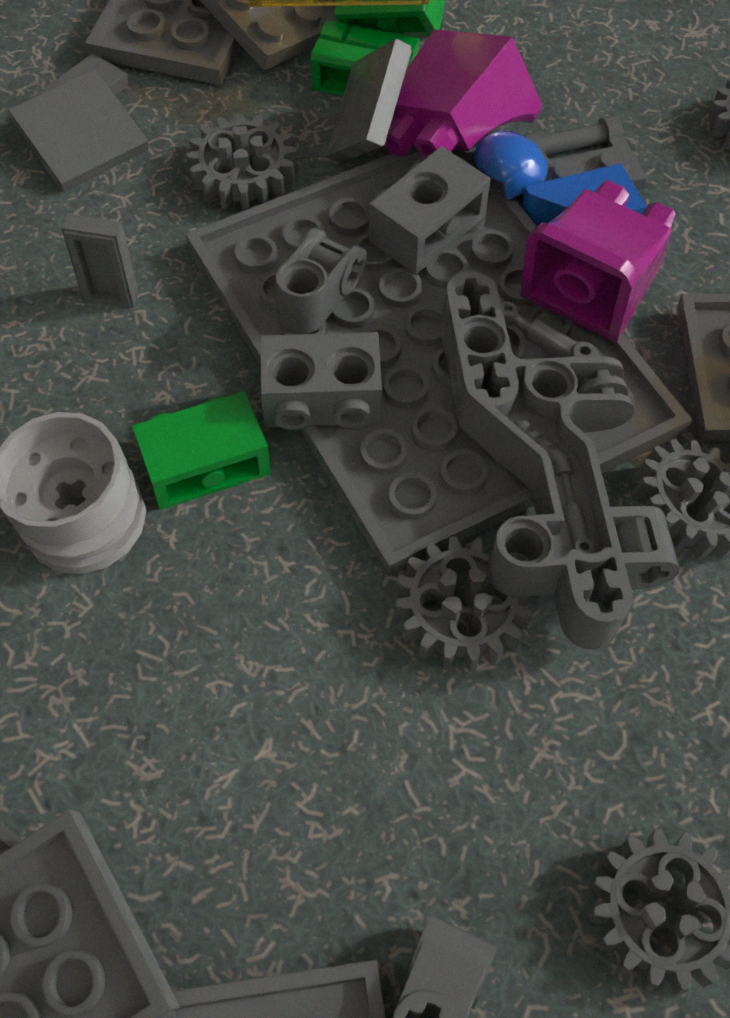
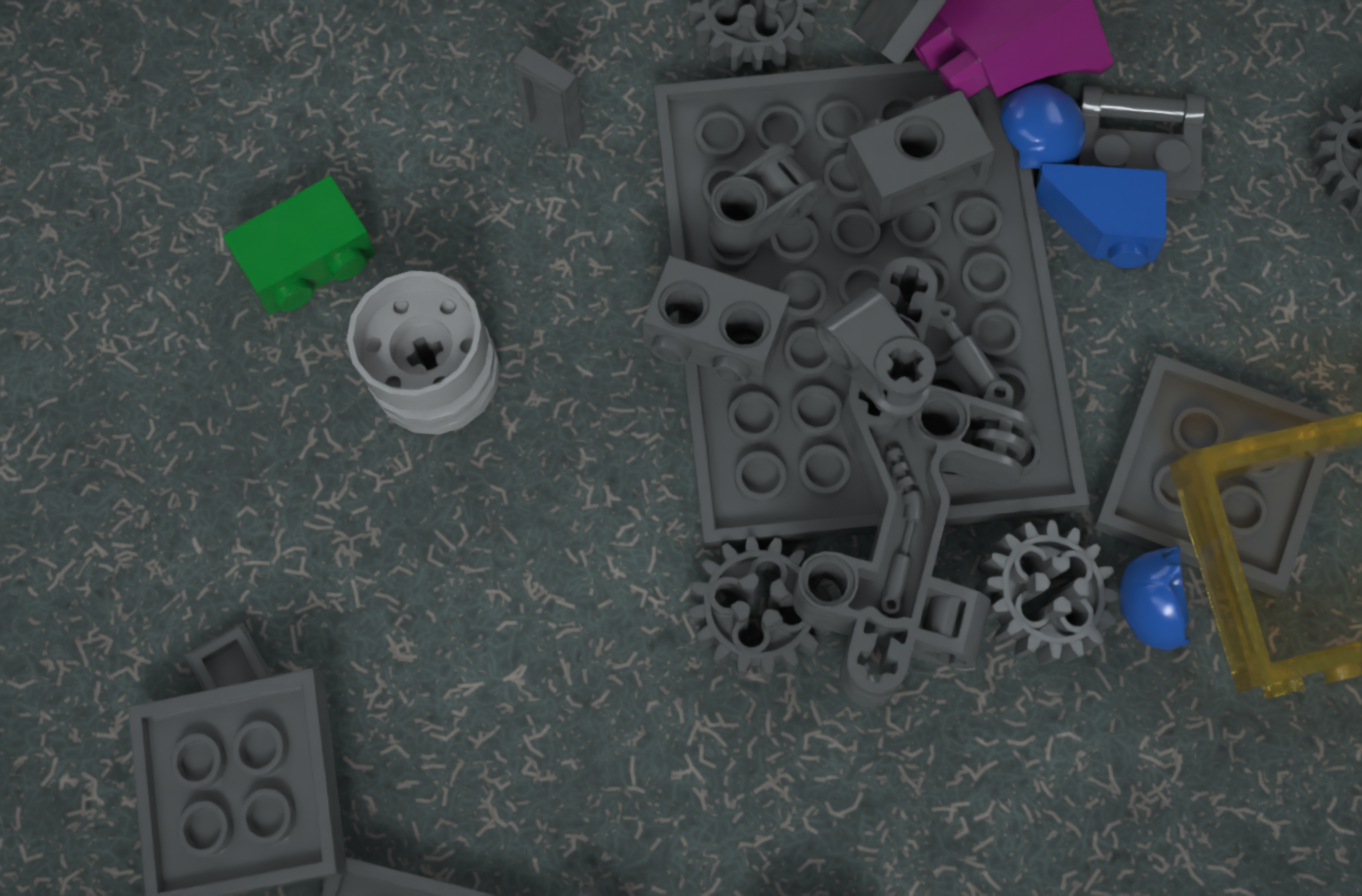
camera: 25 degrees right, 10 degrees up
(202, 449) = (572, 346): green brick -> none
(479, 335) = (872, 344): none -> dark grey piece
(596, 259) = (1074, 285): magenta hips -> none

